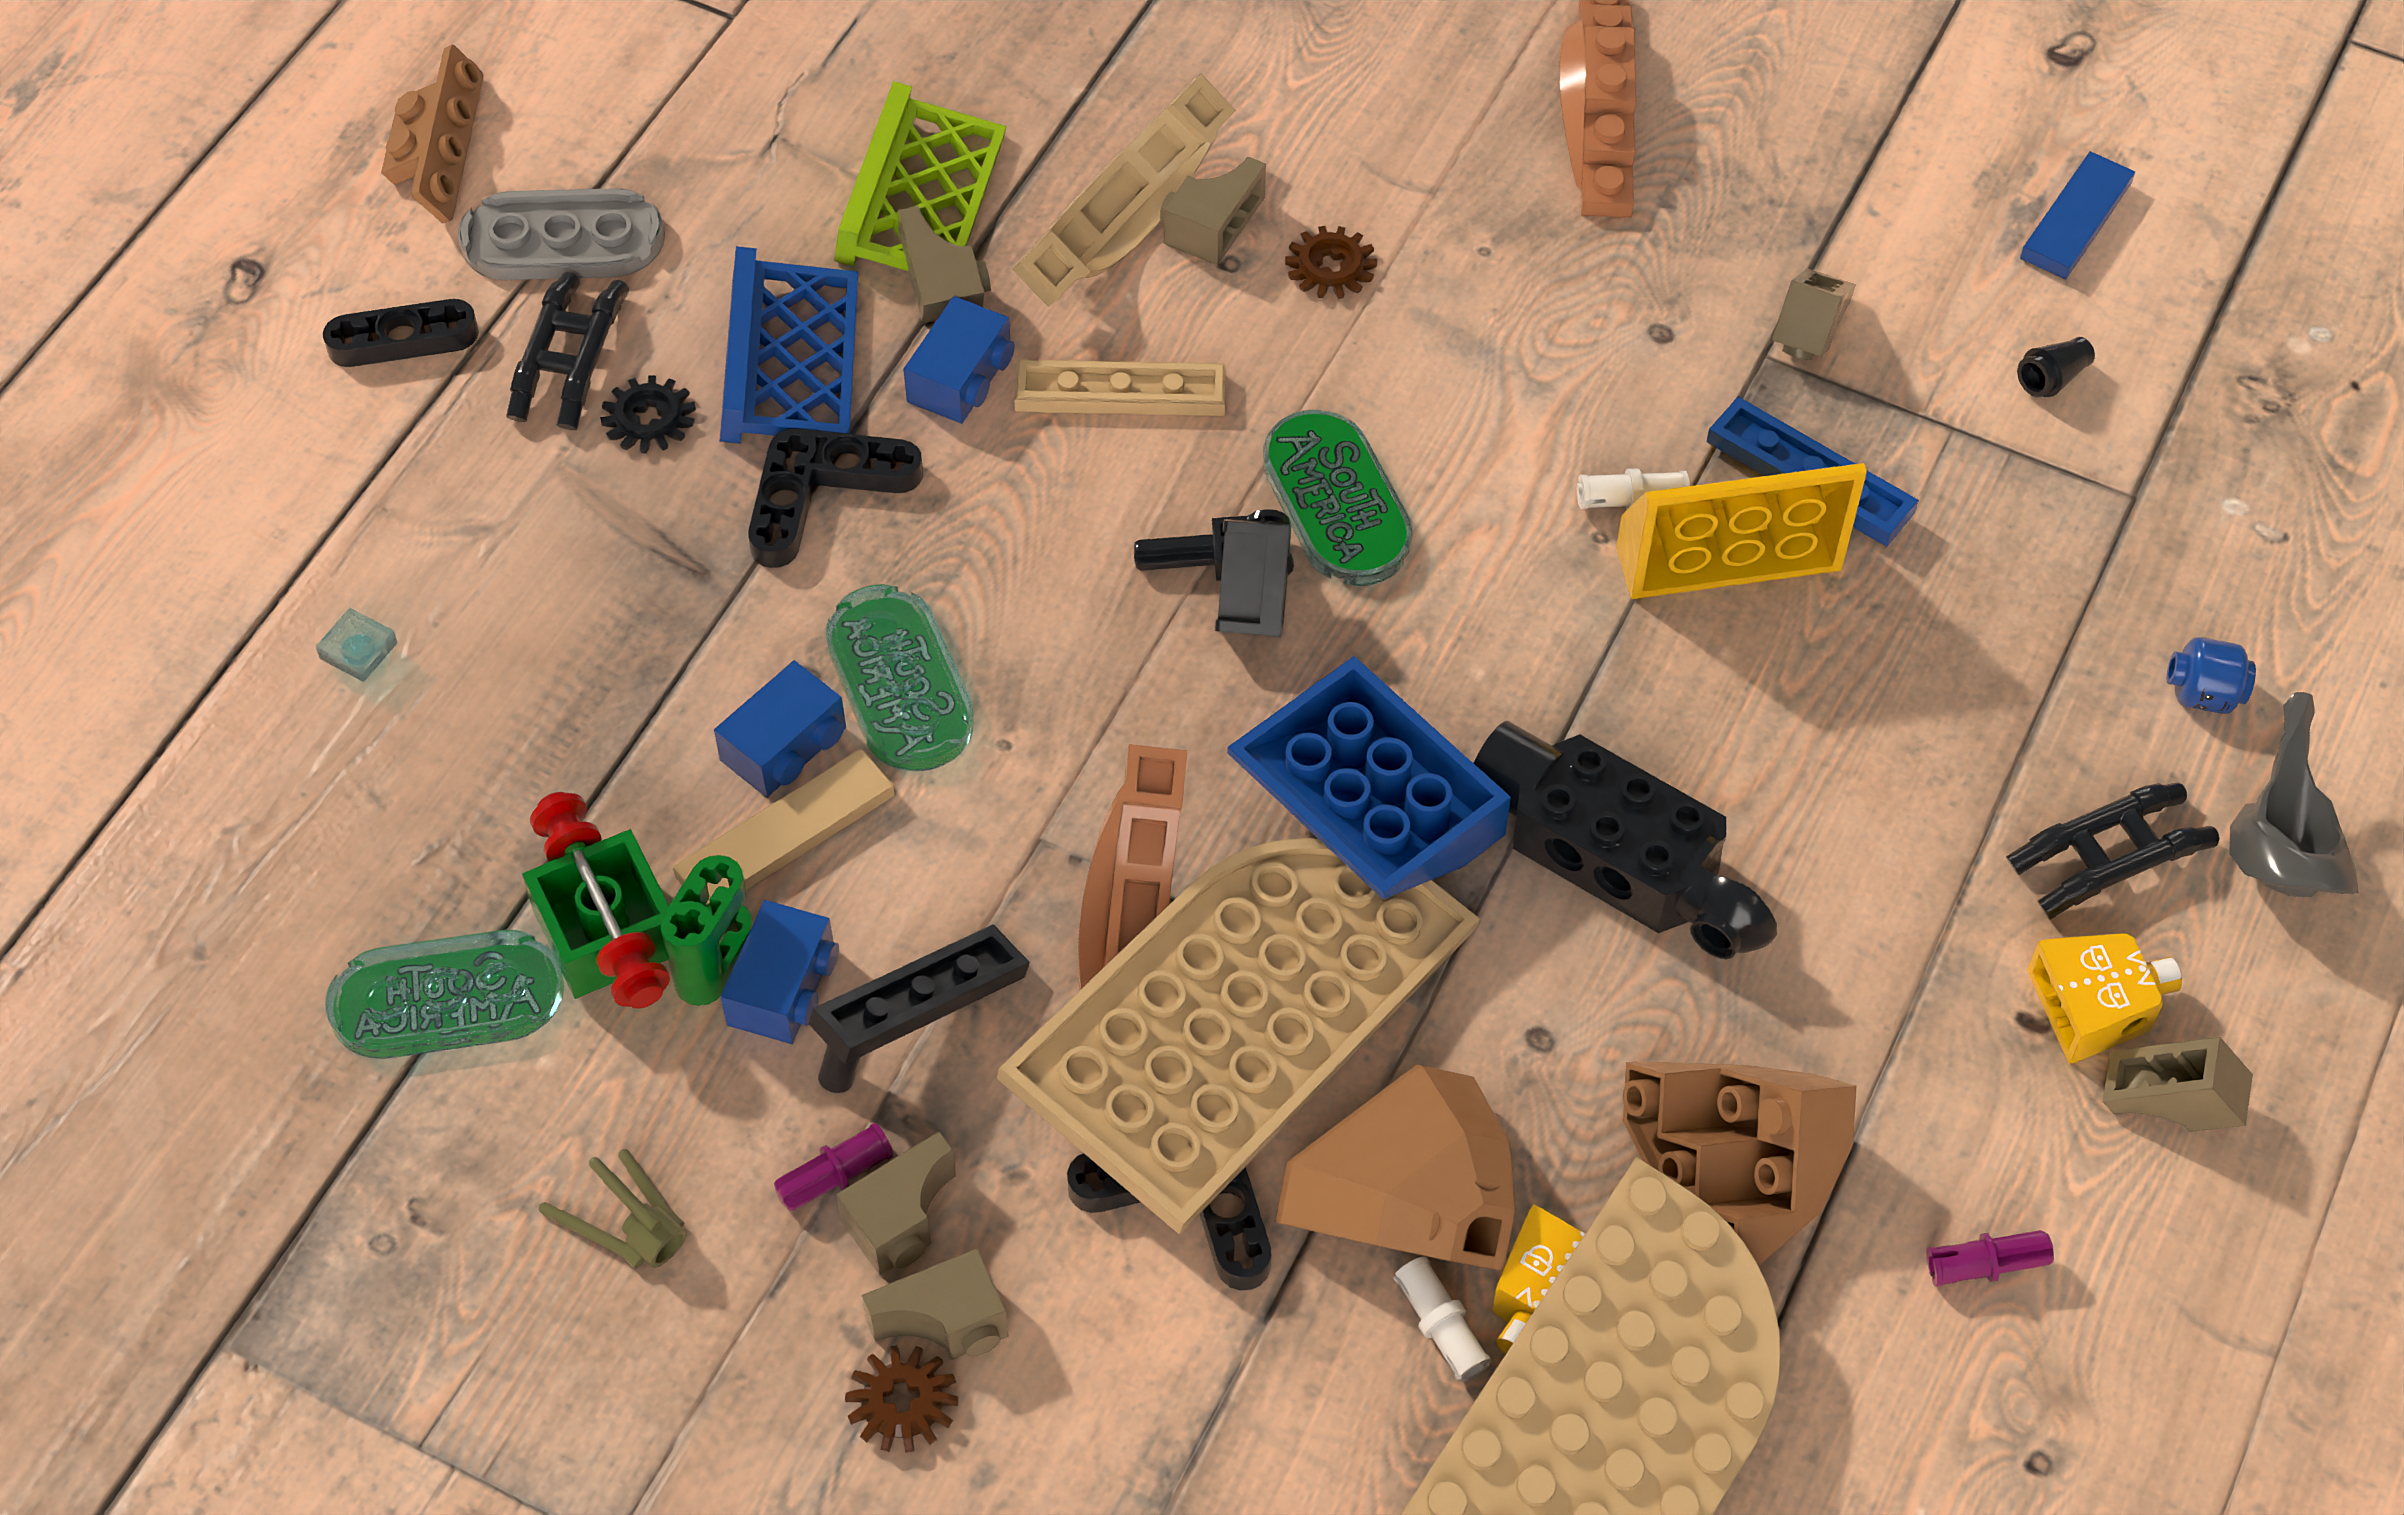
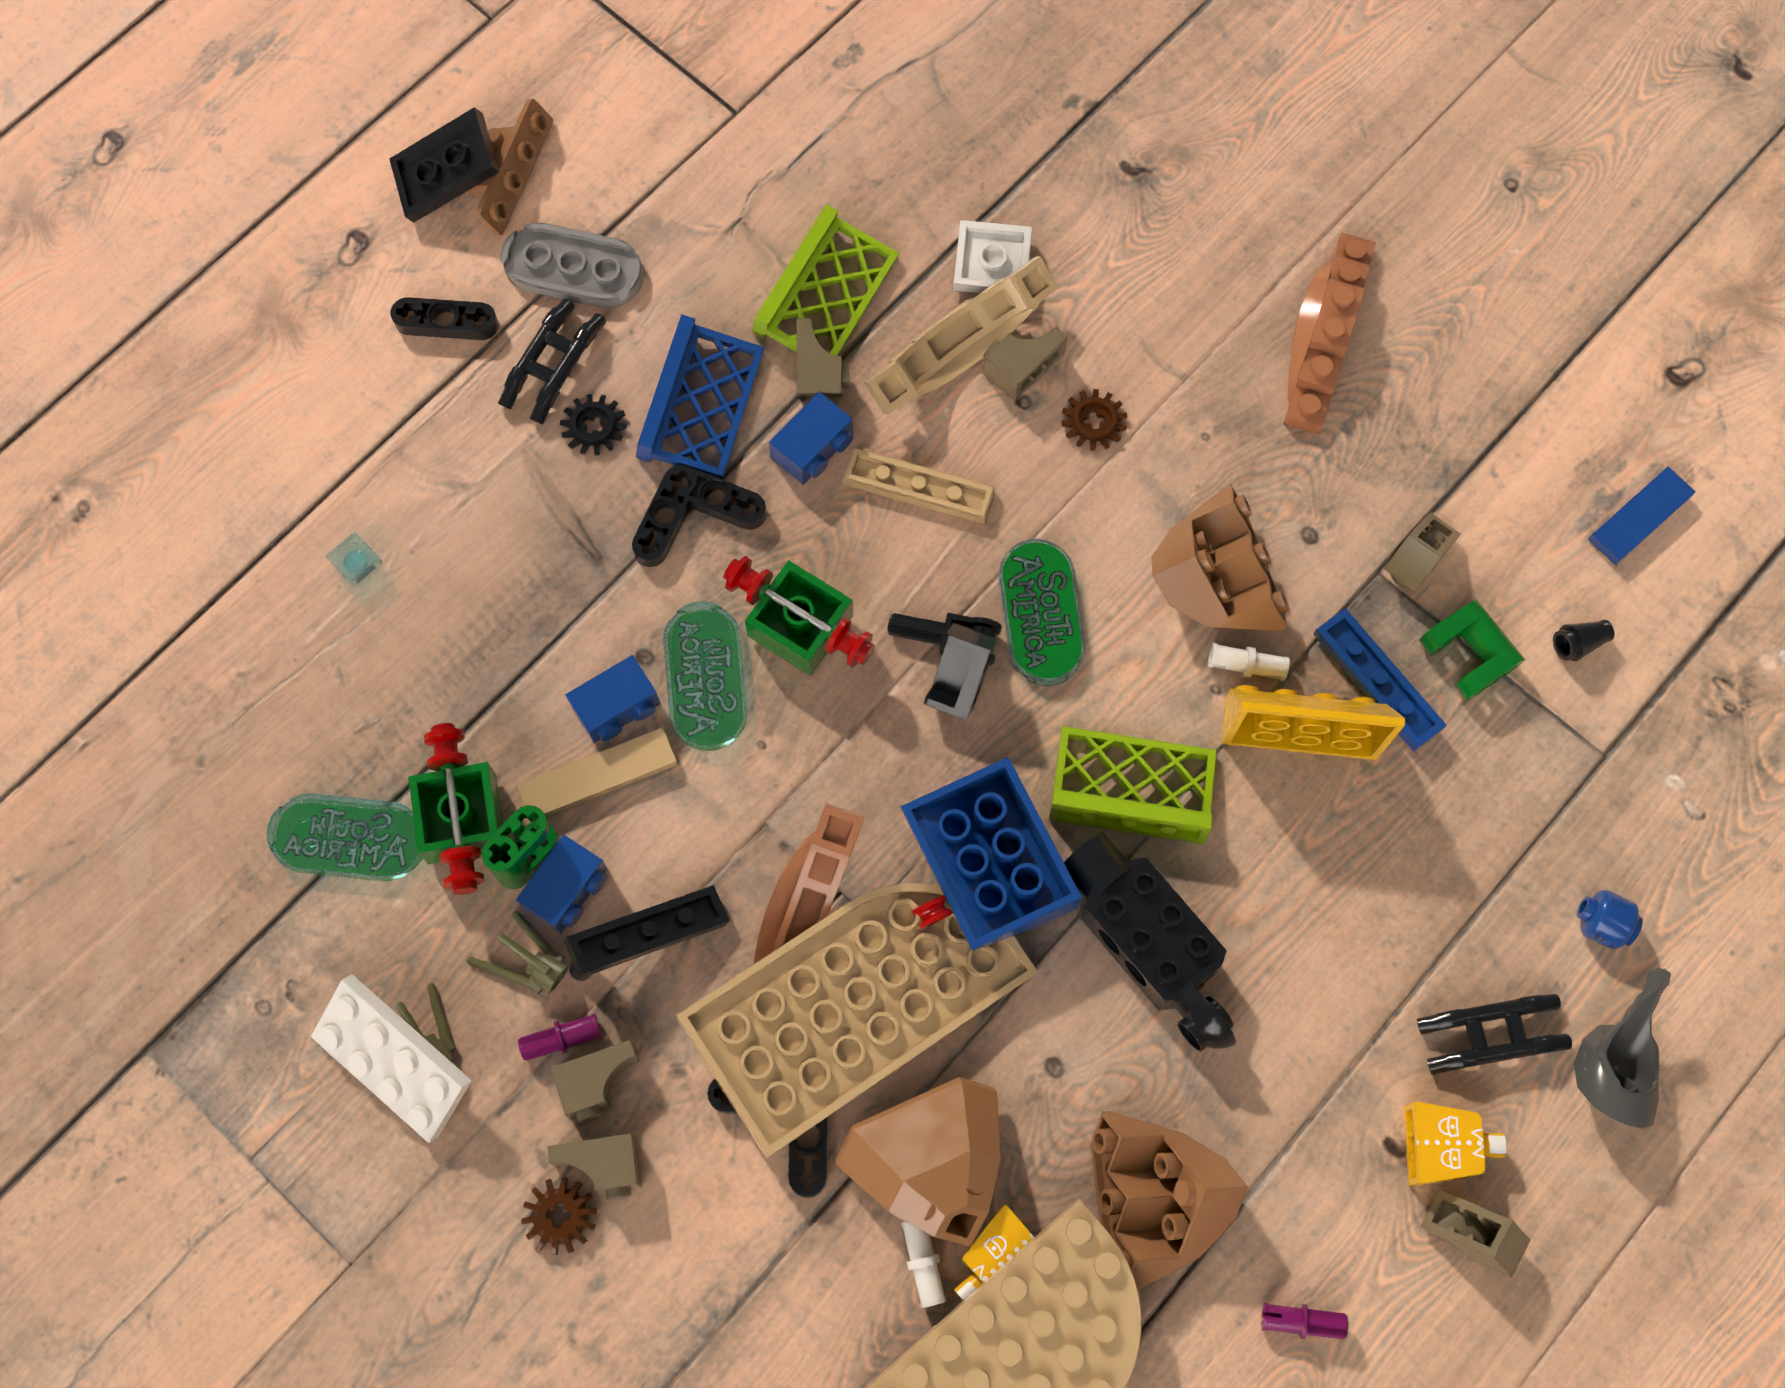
camera: 15 degrees right, 15 degrees up
(351, 145) = (444, 165): none -> black plate
(597, 1245) = (390, 1058): none -> white plate
(783, 1085) = (544, 970): none -> olive plant
(1009, 563) = (798, 615): none -> green brick
(1125, 99) = (989, 253): none -> white plate
(1313, 862) = (932, 912): none -> red bush
(1535, 699) = (1136, 815): none -> lime fence
(1558, 389) = (1218, 568): none -> medium nougat brick
(1950, 404) = (1486, 641): none -> green connector

